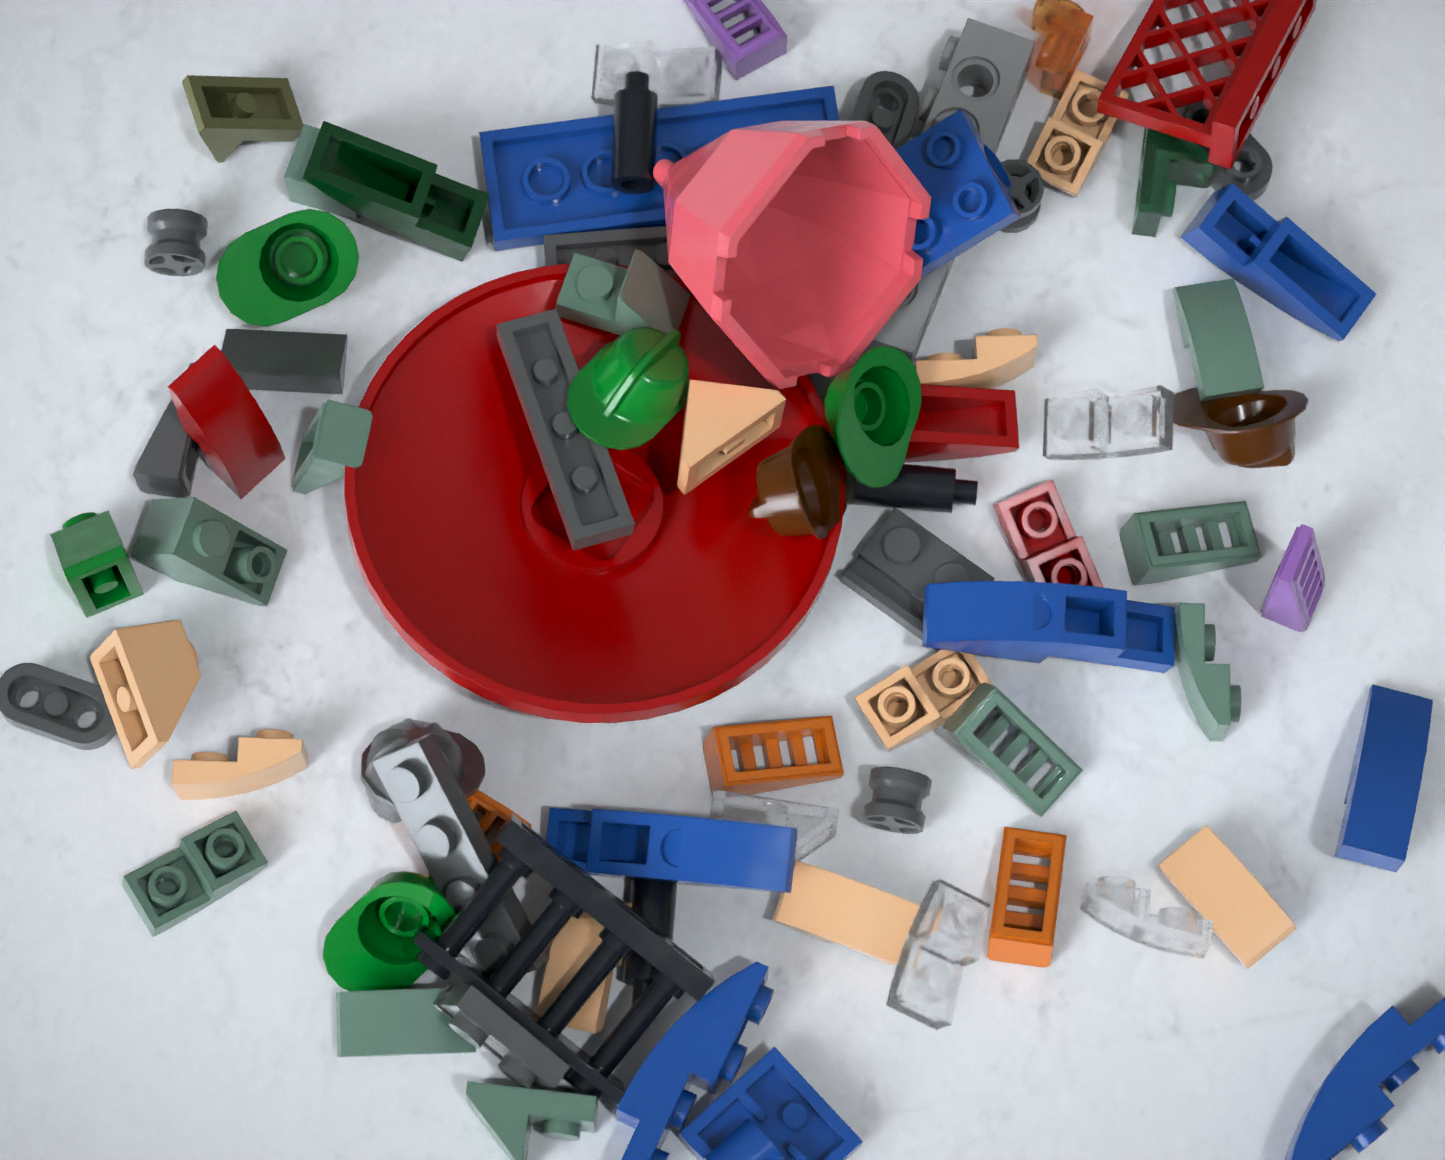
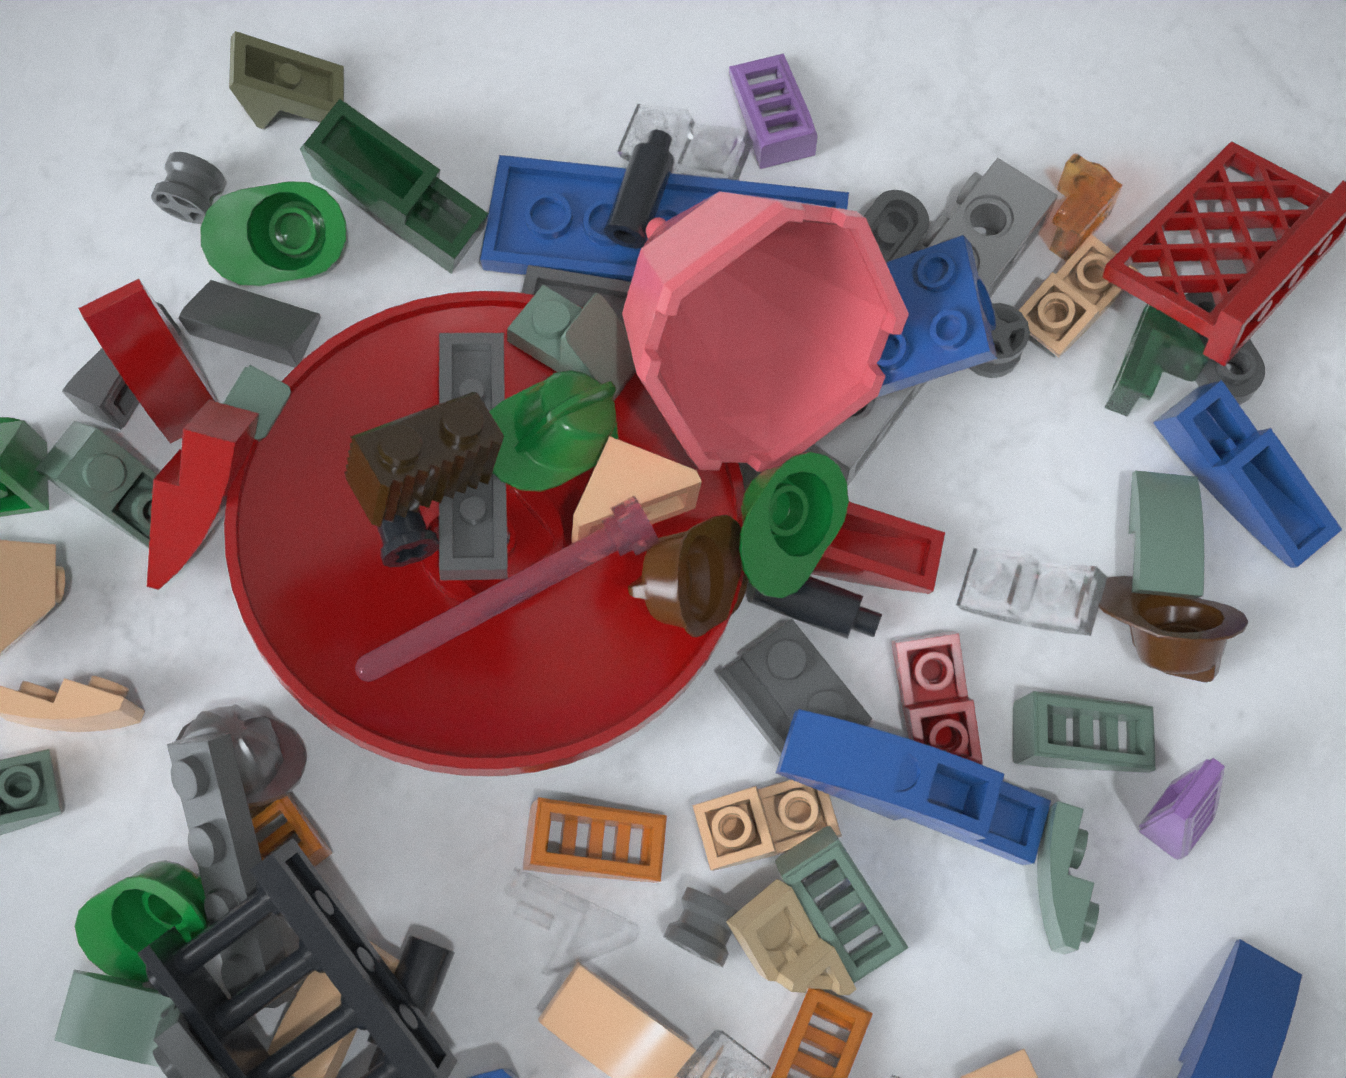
camera: 20 degrees right, 0 degrees up
(314, 529) = (194, 486): none -> red slope
(522, 508) = (406, 540): none -> black bush
(536, 441) = (423, 458): none -> dark brown brick
(676, 848) = (453, 922): blue slope -> none
(733, 460) = (622, 532): none -> clear pink piece
(972, 794) = (785, 944): none -> tan slope
(995, 361) = (935, 496): light nougat slope -> none

